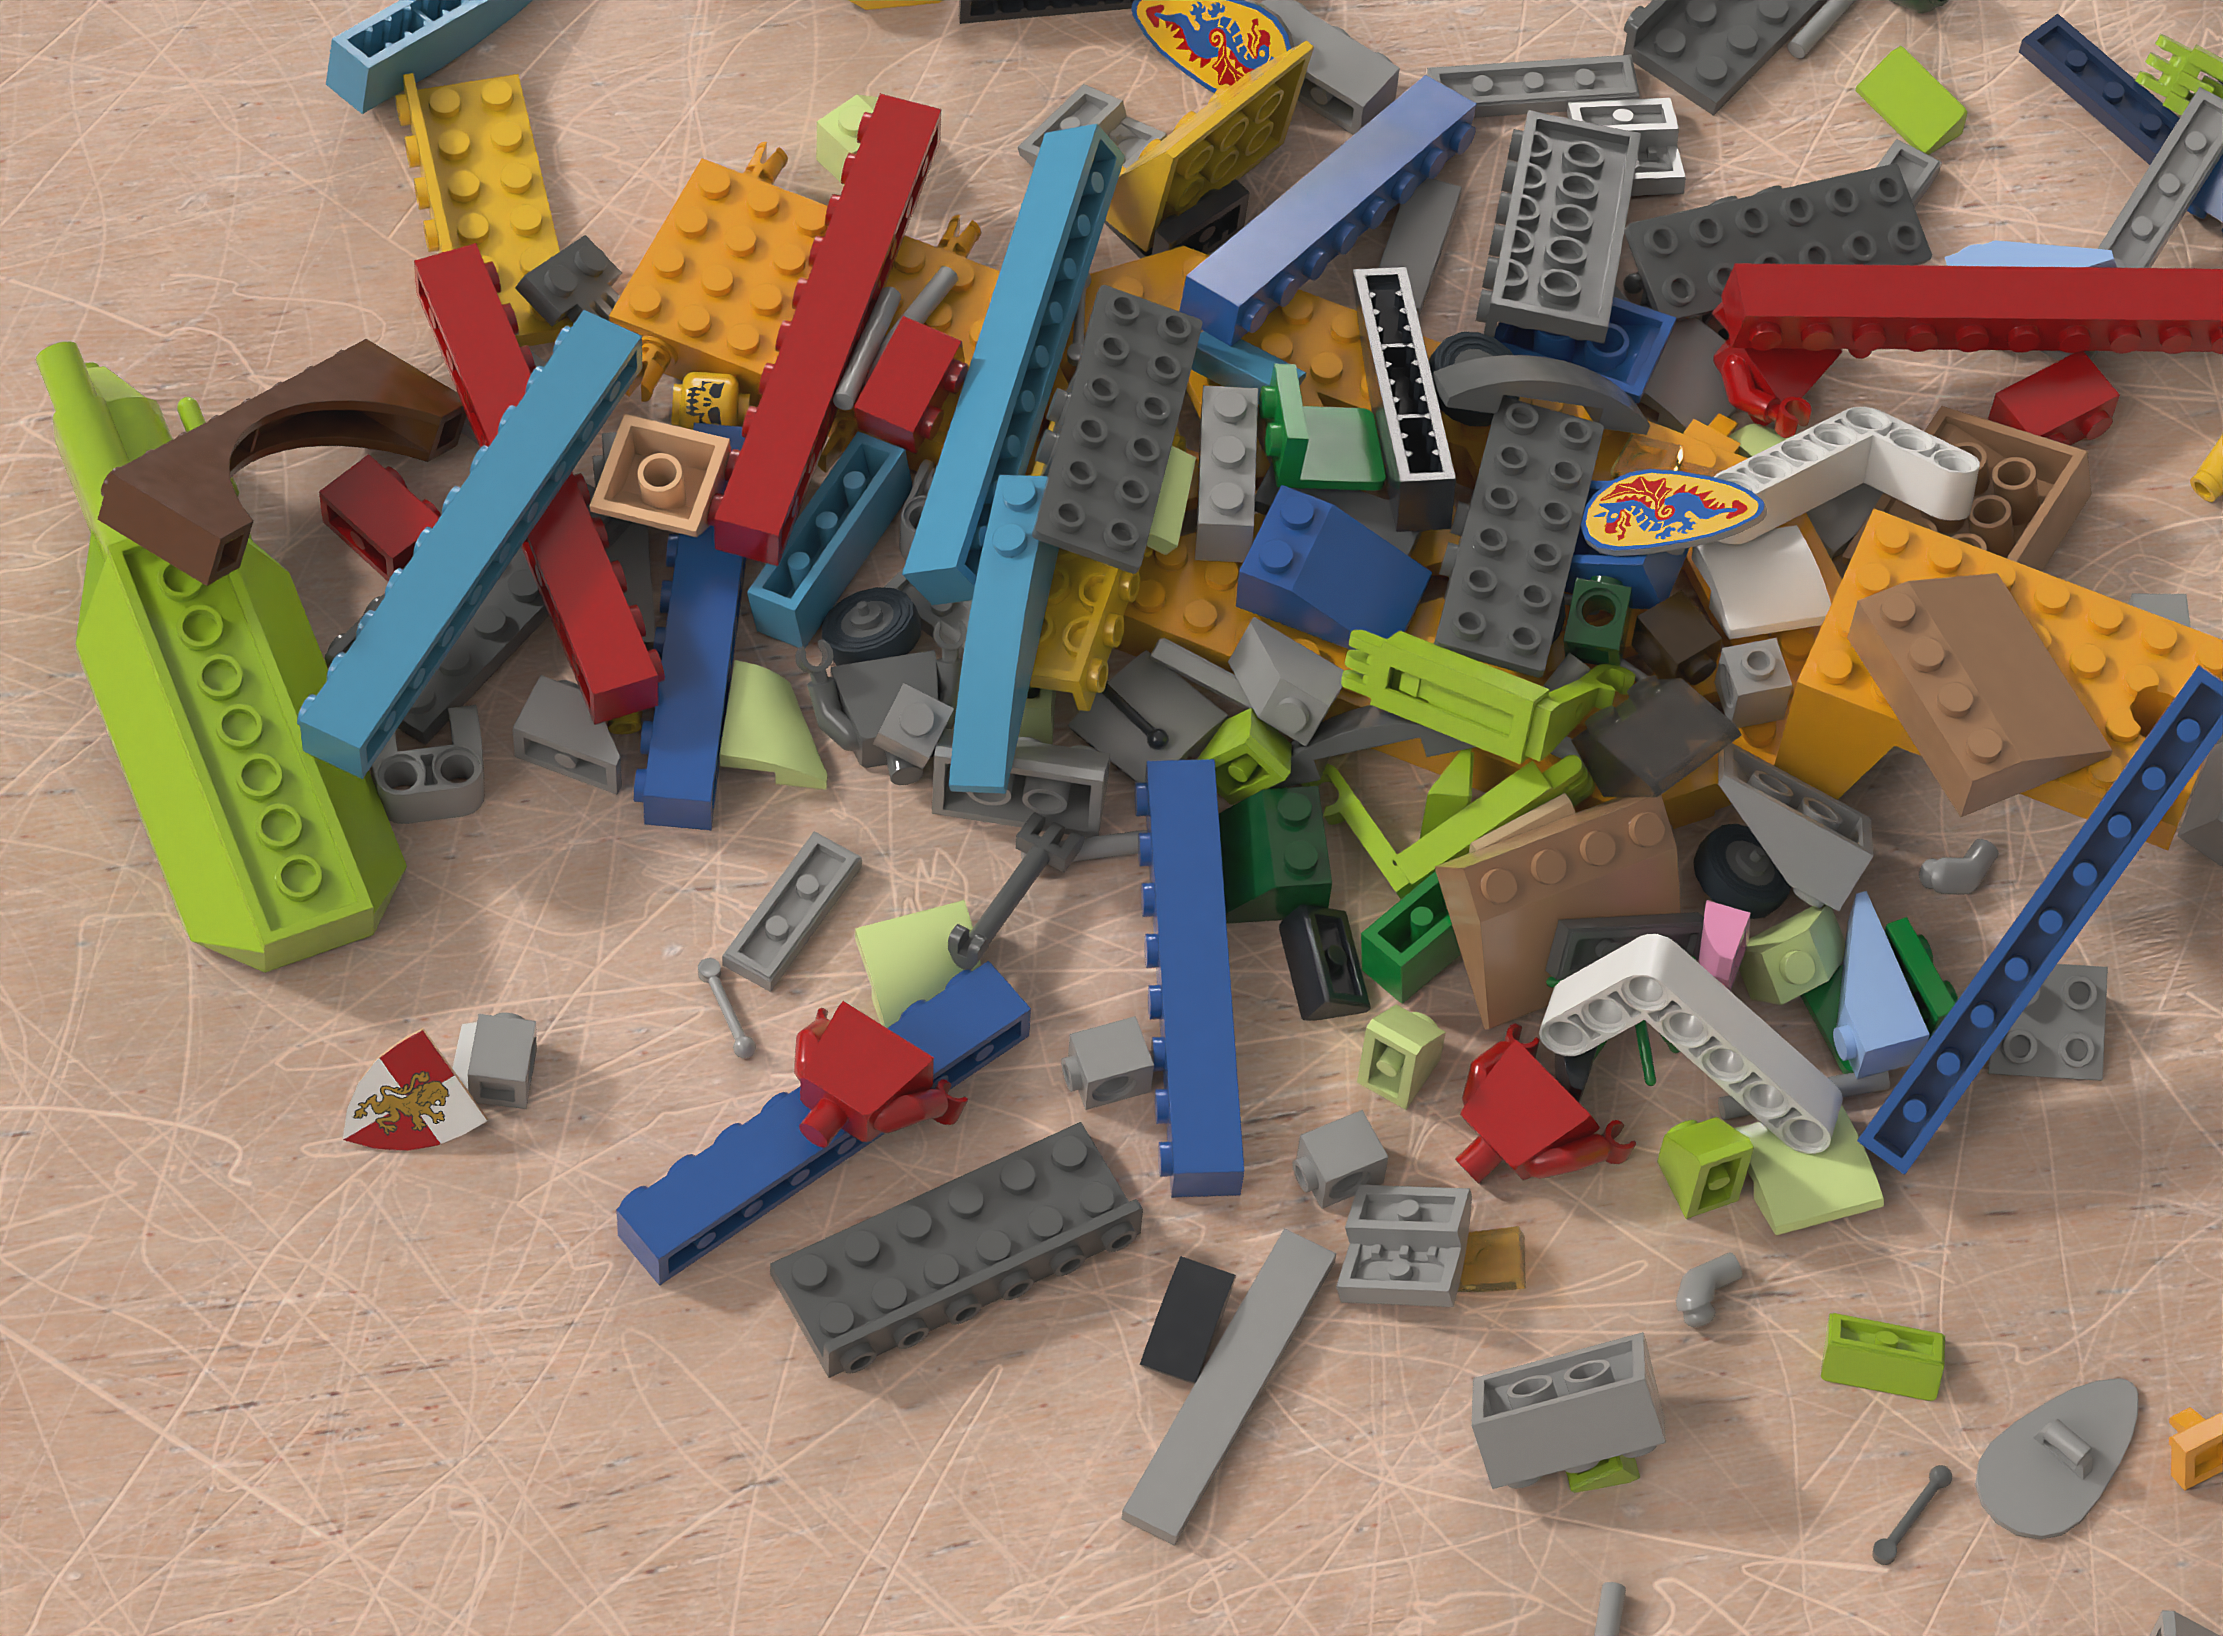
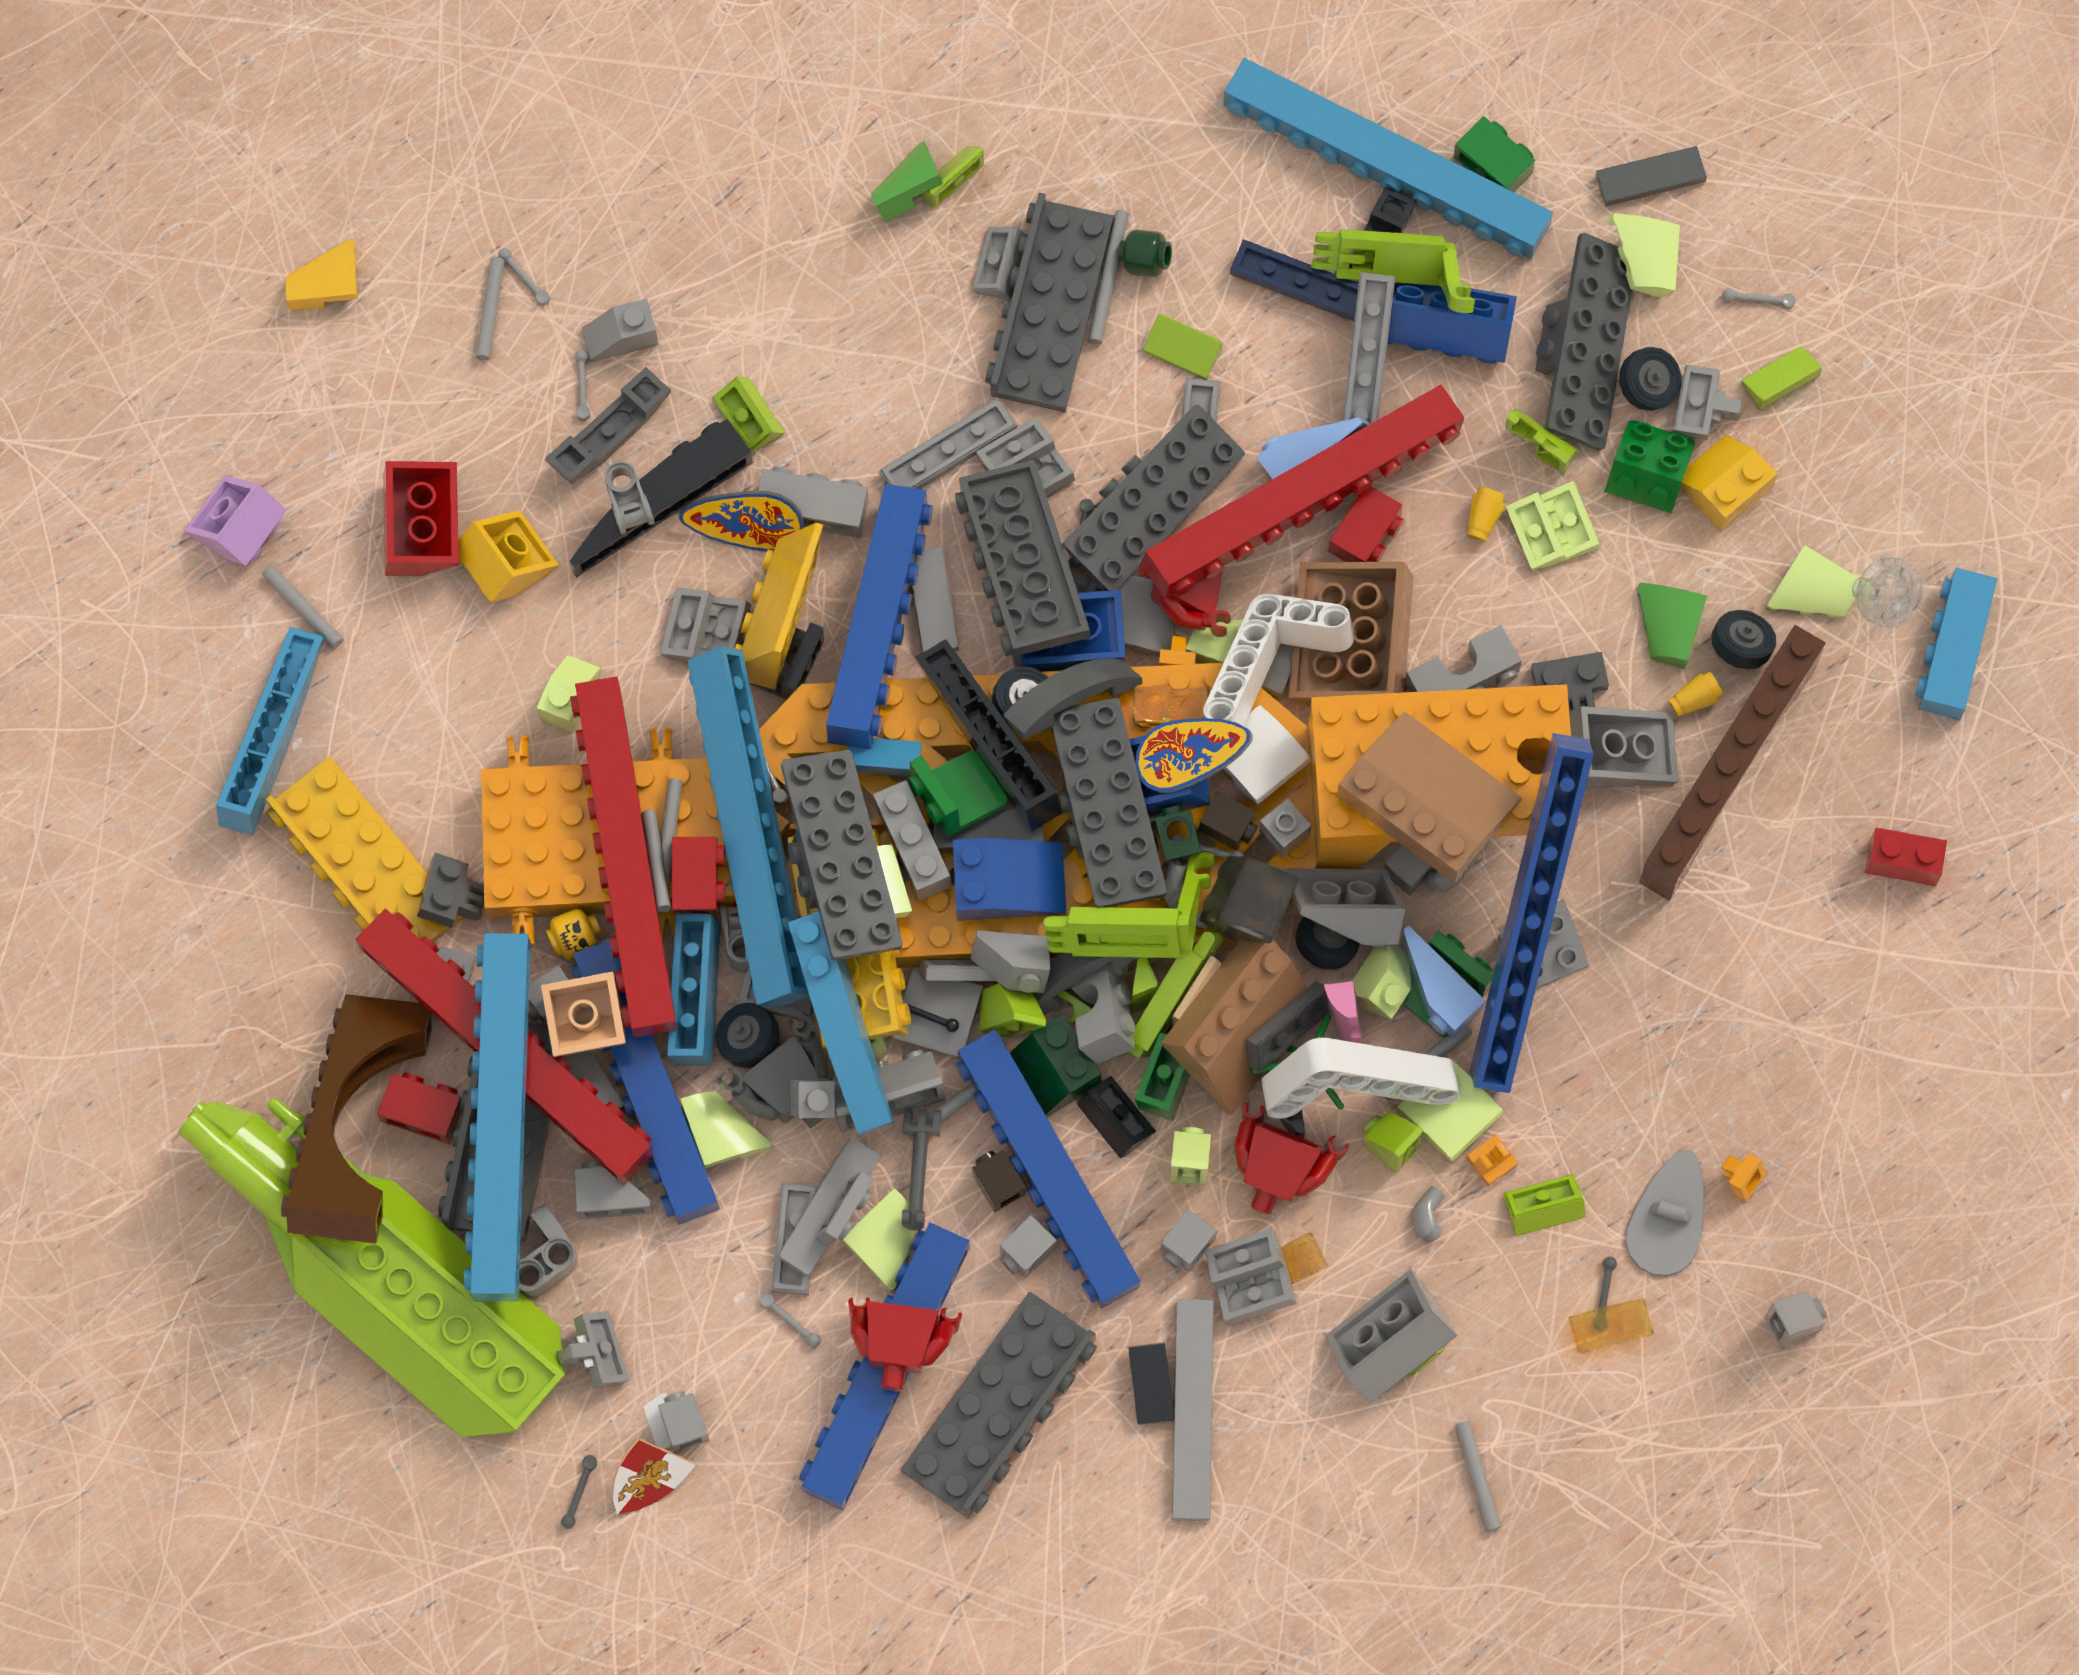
camera: 20 degrees left, 15 degrees up
(344, 1059) = (589, 1464): none -> dark grey hinge
(438, 914) = (596, 1350): none -> light grey hinge
(861, 886) = (831, 1207): none -> light grey bracket
(1115, 962) = (998, 1179): none -> dark brown brick
(1377, 819) = (1108, 1026): none -> light grey arch
(1835, 1262) = (1492, 1160): none -> light orange tile
(1901, 1554) = (1611, 1325): none -> clear yellow slope
(1911, 832) = (1407, 869): none -> light grey brick

